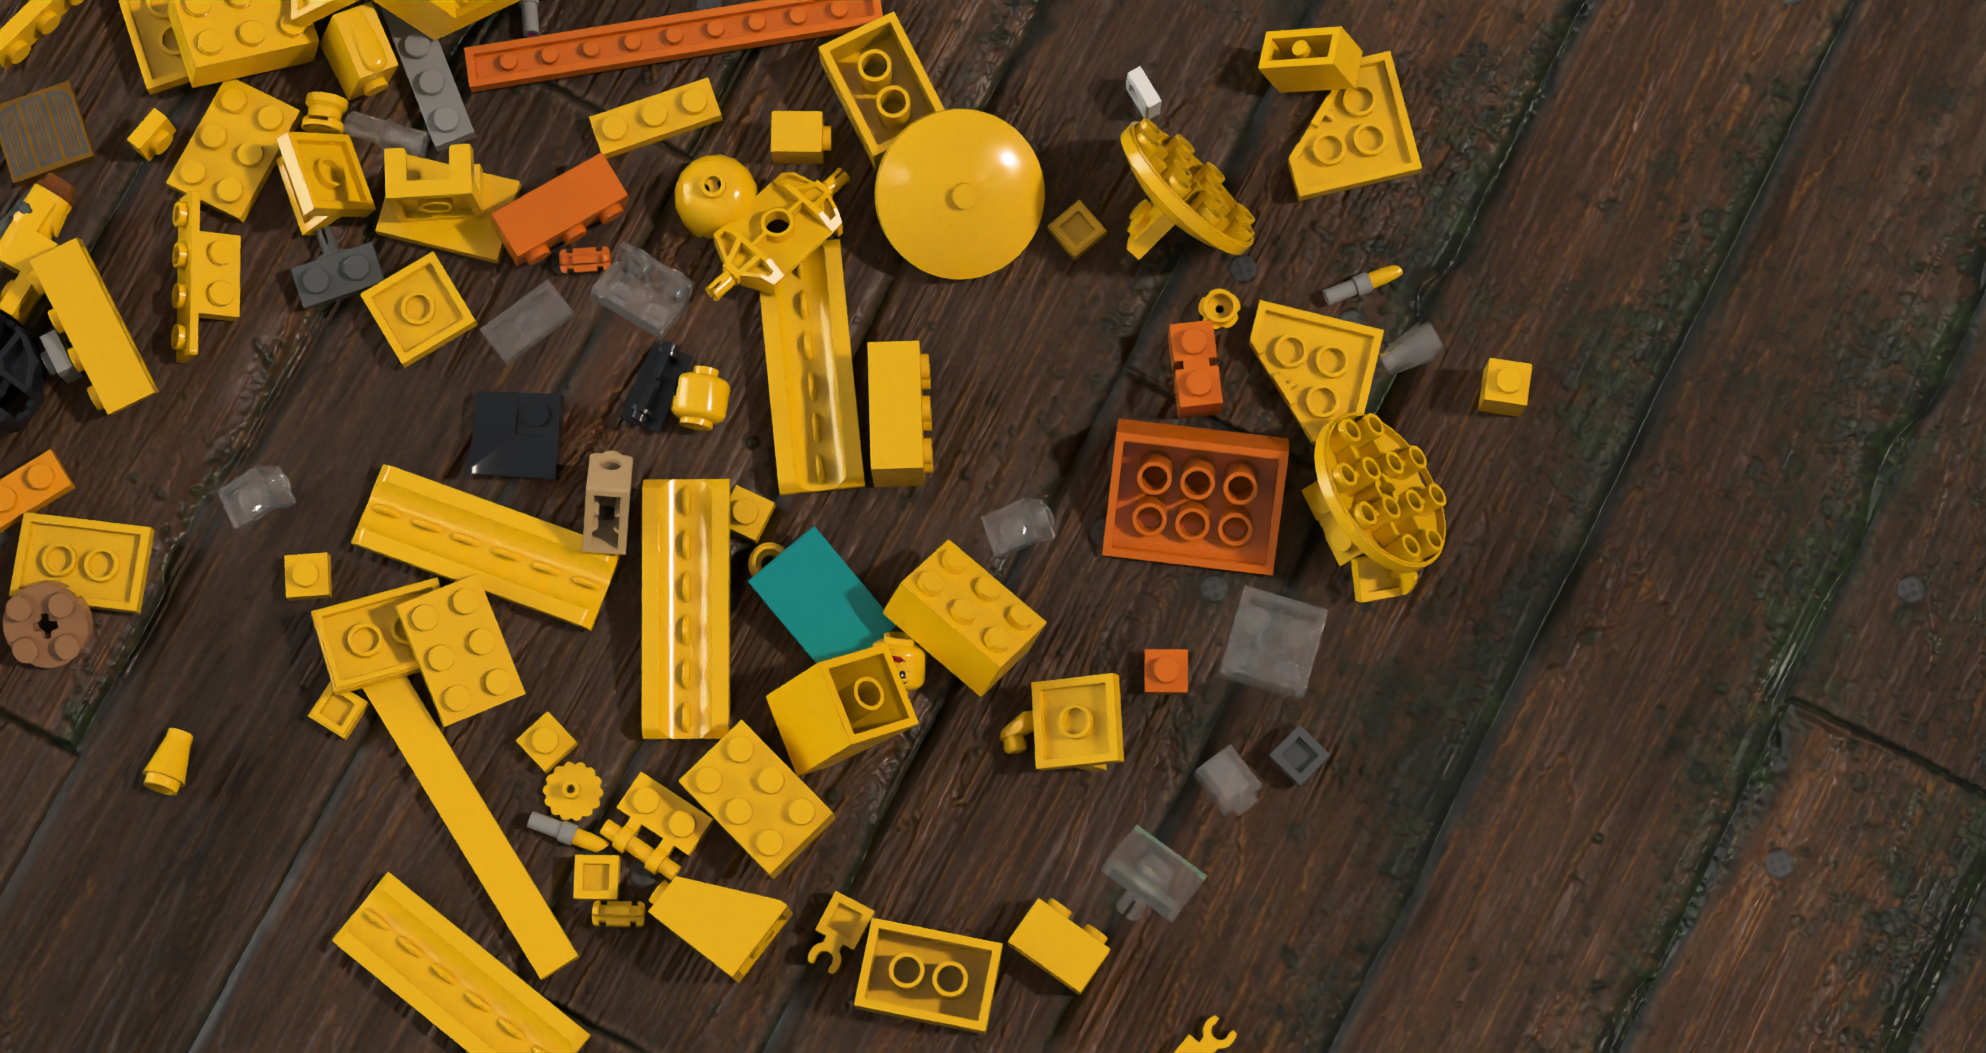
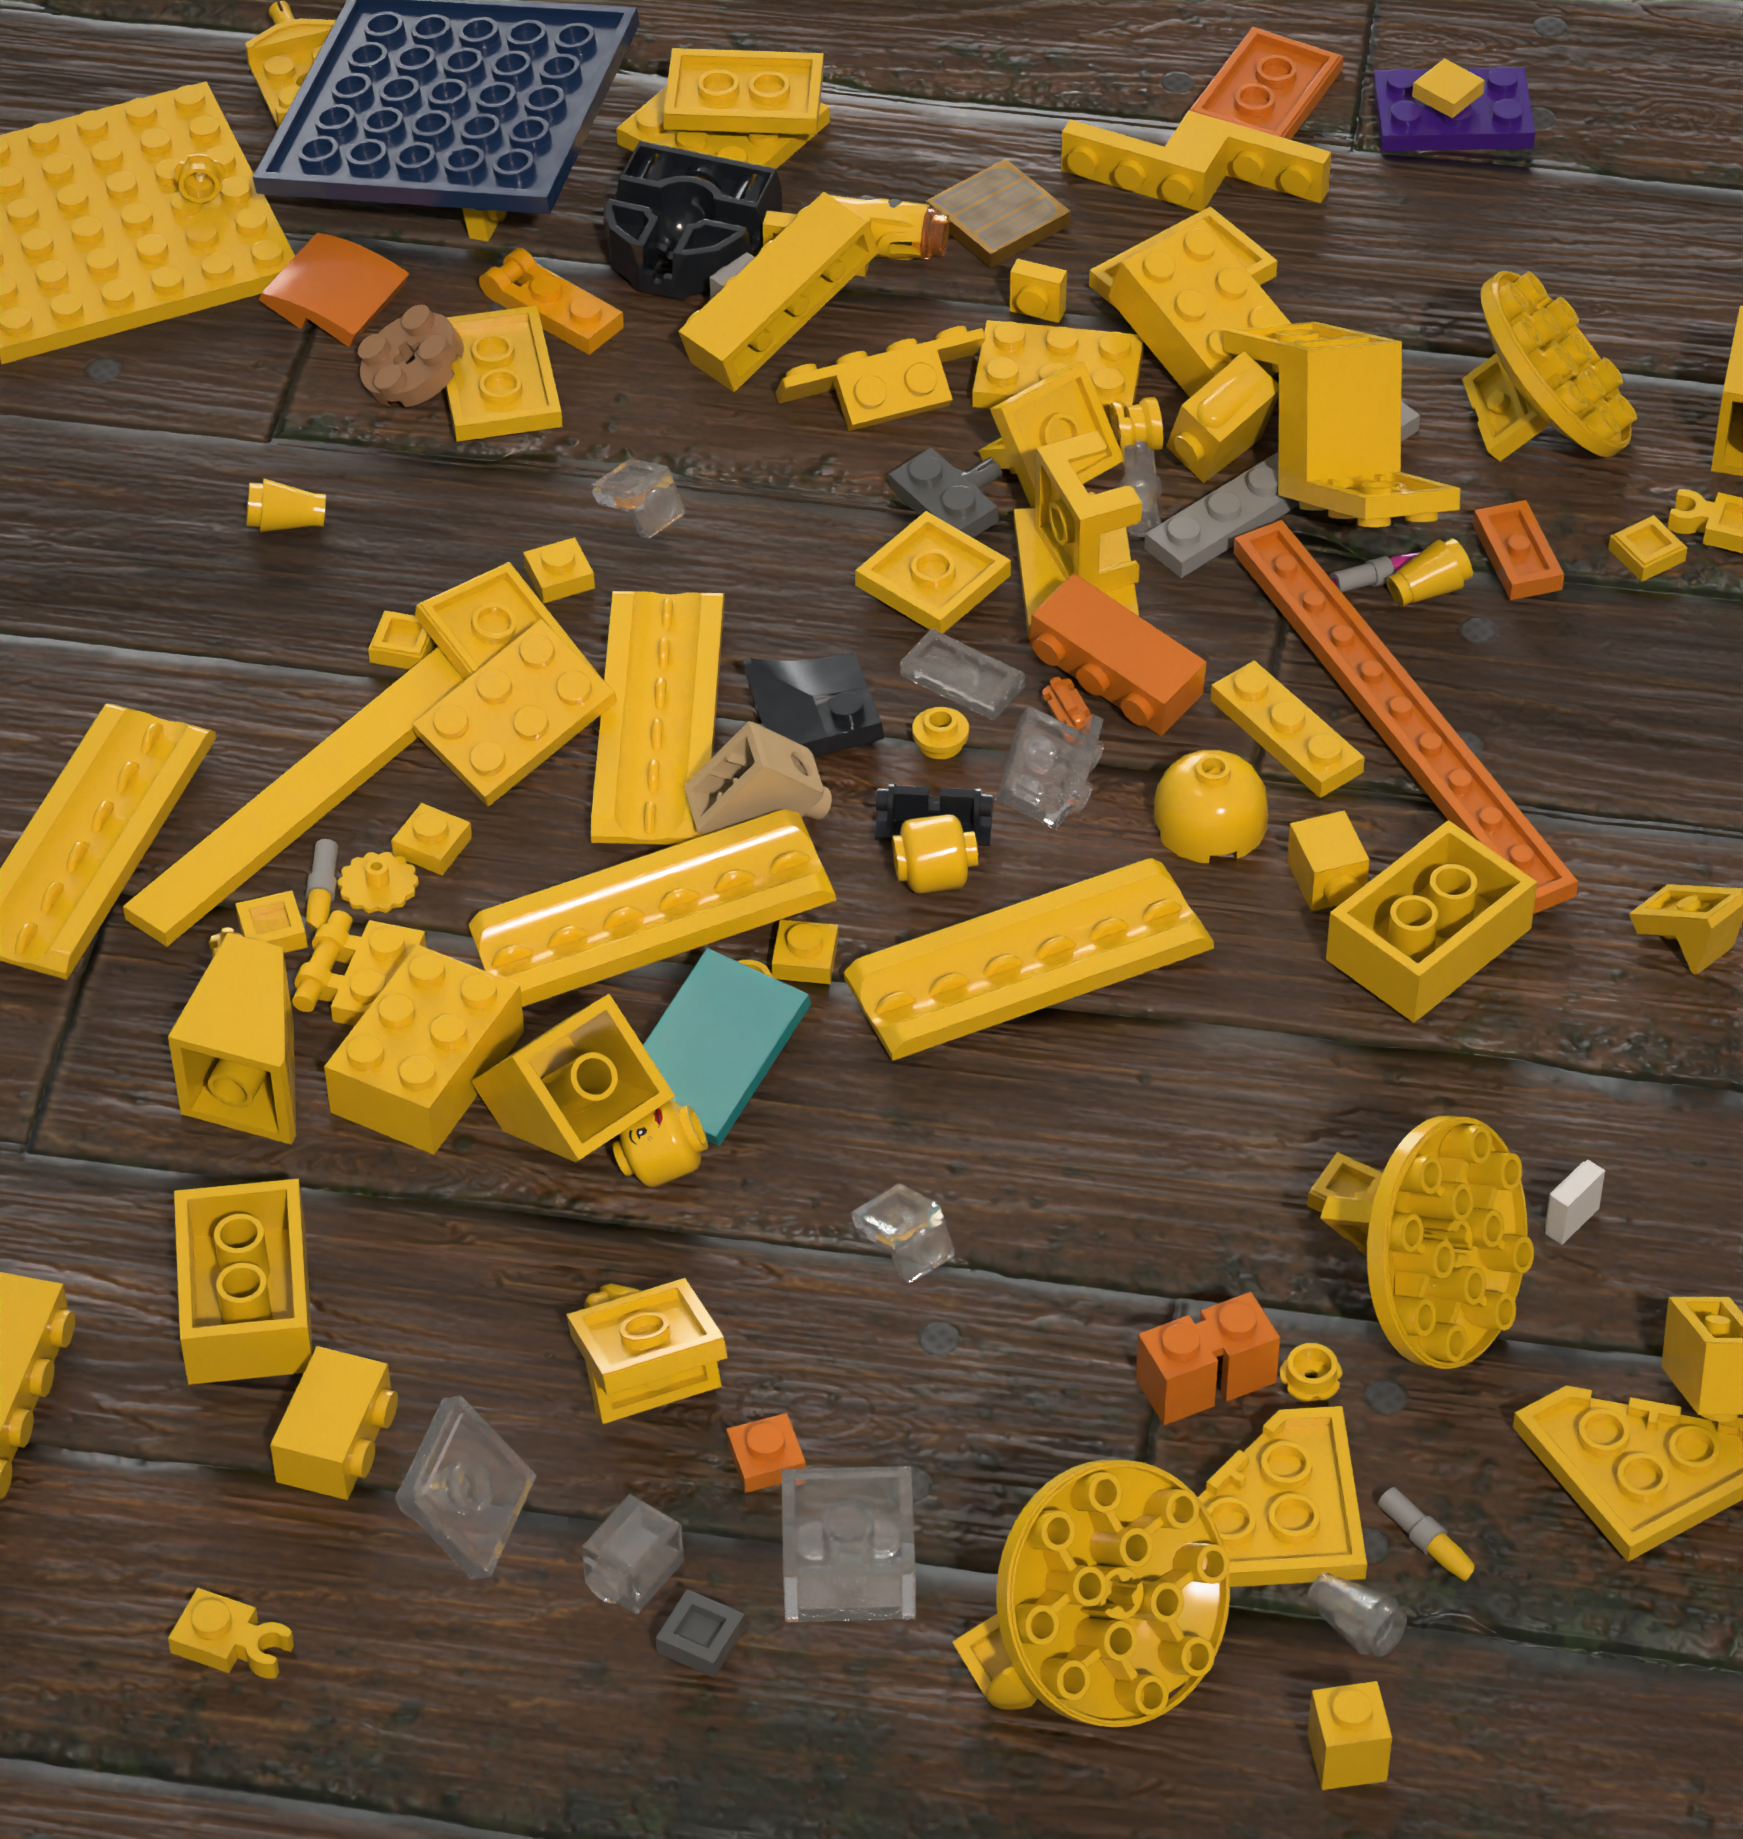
camera: 70 degrees right, 30 degrees down
(577, 367) = (940, 732): none -> yellow plate
(764, 258) = (1229, 887): yellow plate -> none
(843, 925) = (313, 1177): yellow plate -> none
(899, 413) = (995, 1040): yellow brick -> none
(959, 193) = (1328, 1029): yellow dish -> none
(964, 617) = (745, 1182): yellow brick -> none
(1195, 496) = (1020, 1397): orange slope -> none

